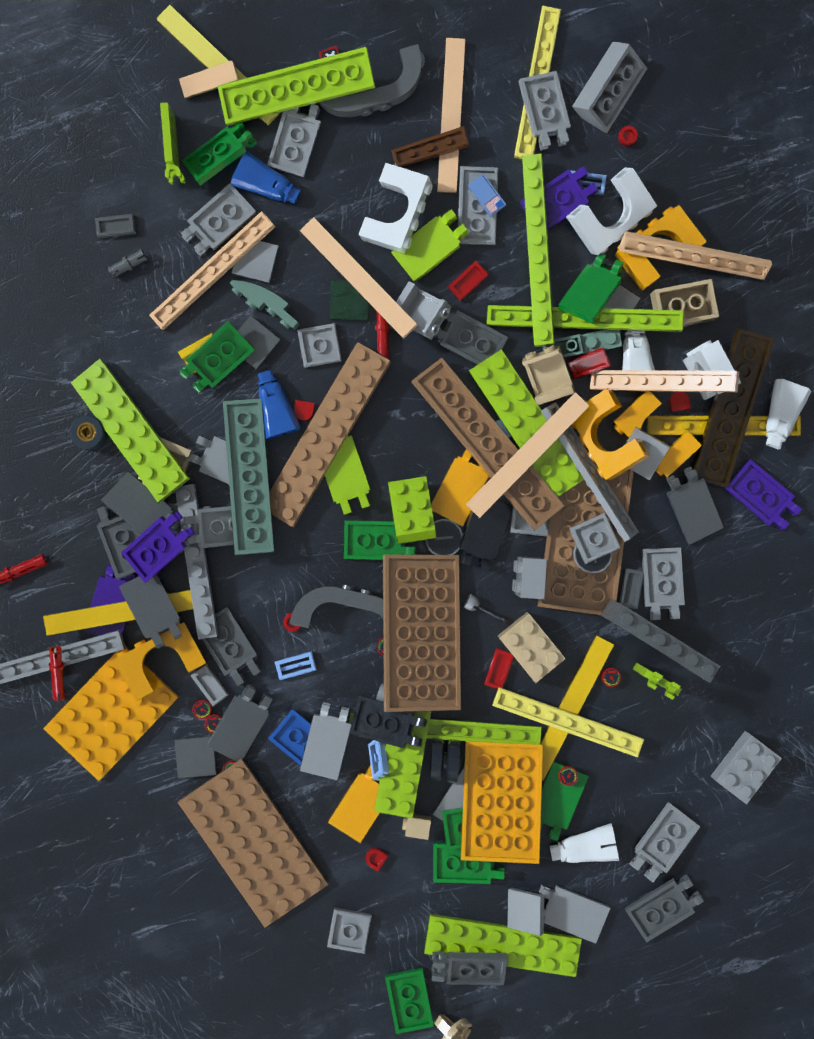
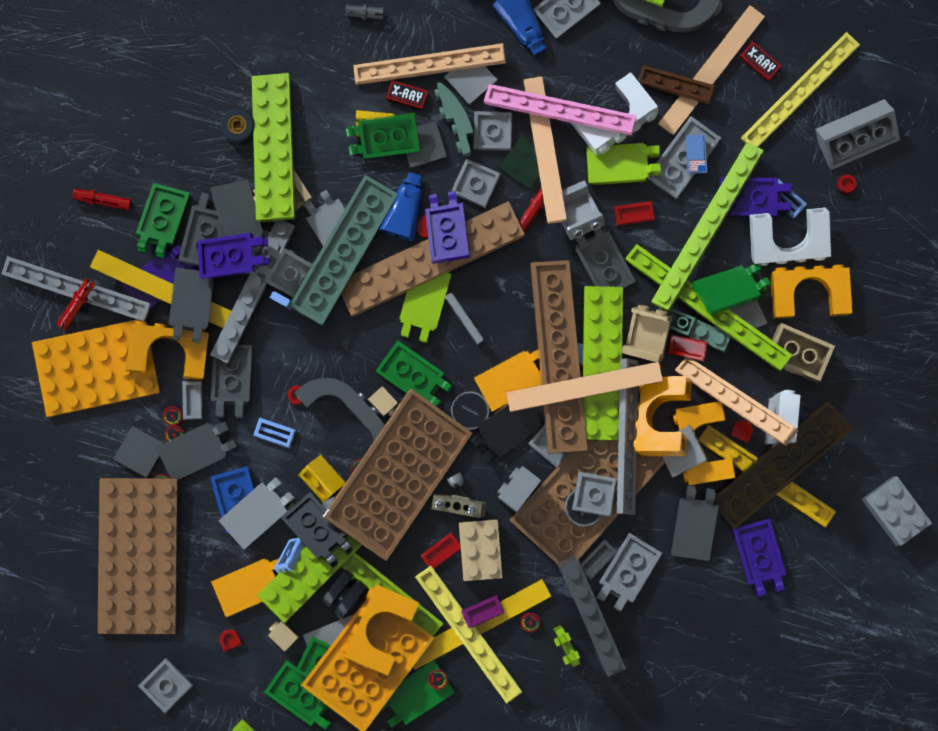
camera: 40 degrees right, 5 degrees down
(78, 553) = (161, 218): none -> green tile
(211, 310) = (406, 95): none -> tile
(218, 219) = (463, 26): light grey tile -> none
(224, 554) = (280, 299): none -> light blue tile
(303, 291) = (492, 131): none -> light grey tile
(323, 401) = (447, 230): none -> dark purple tile
(348, 234) = (560, 109): none -> bright pink plate
(360, 676) = (321, 478): none -> yellow panel
(368, 579) = (383, 402): none -> tan brick
(387, 465) = (464, 318): none -> light grey tile
(412, 510) = (458, 368): lime brick -> none
(487, 80) = (760, 61): none -> tile
(491, 798) = (380, 601): none -> light orange arch
(504, 615) = (475, 509): none -> dark tan piece
(545, 108) = (792, 116): light grey tile -> none
(567, 696) = (482, 612): none -> magenta tile
(637, 352) = (734, 365): white piece -> none
(695, 255) = (834, 318): light nougat tile -> none
(785, 408) = (827, 495): white piece -> none

